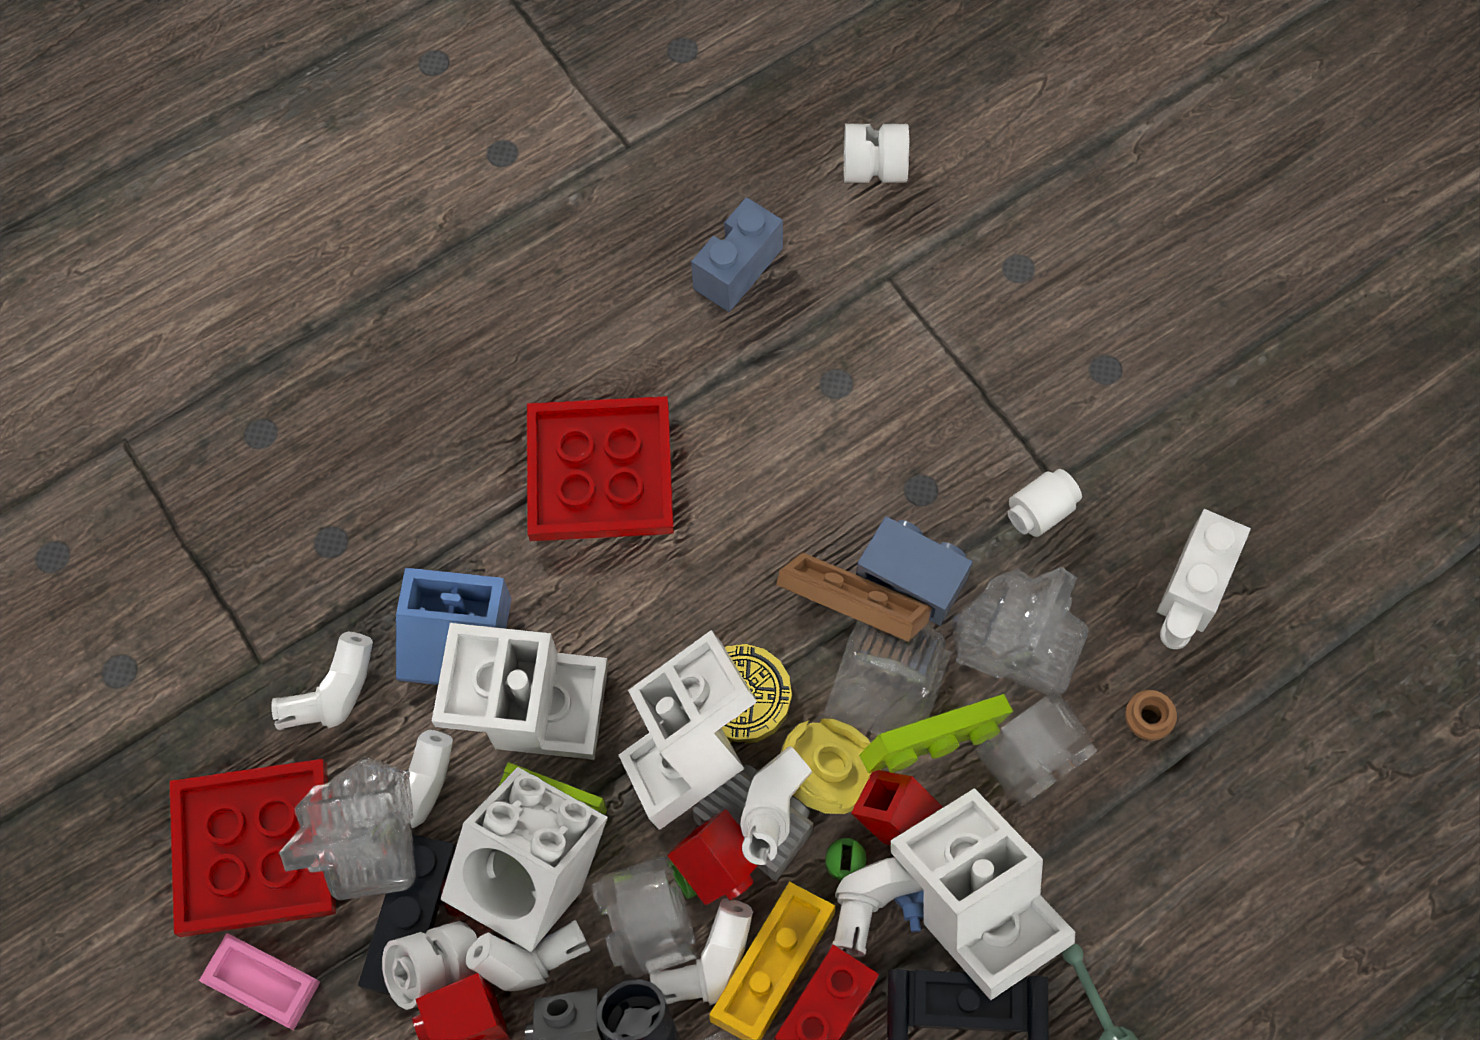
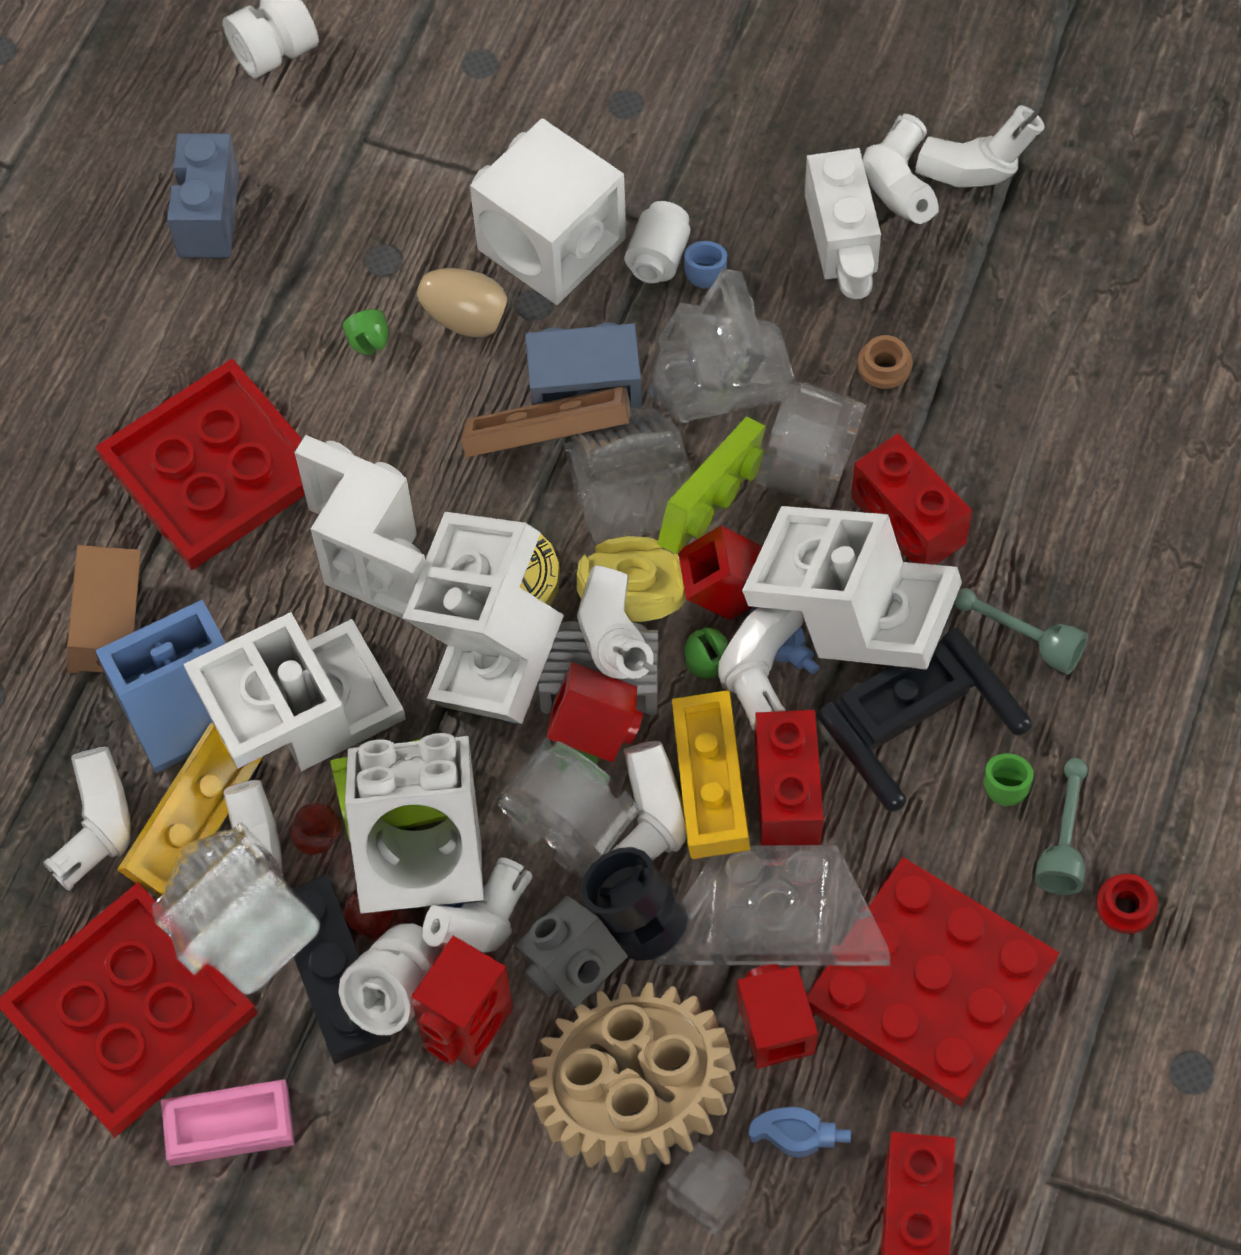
camera: 35 degrees left, 5 degrees down
(383, 733) = (186, 813): none -> yellow plate
(446, 528) = (101, 603): none -> medium nougat hinge
(470, 791) = (314, 820): none -> clear red hinge
(661, 591) = (361, 524): none -> white bracket
(779, 436) = (367, 331): none -> bright green hinge
(863, 457) = (463, 300): none -> tan animal
(974, 426) = (548, 210): none -> white brick
(1068, 542) = (704, 263): none -> medium blue hinge
(1083, 848) = (922, 508): none -> red brick
(1266, 564) = (891, 176): none -> white arm
(1351, 595) = (983, 159): none -> white arm

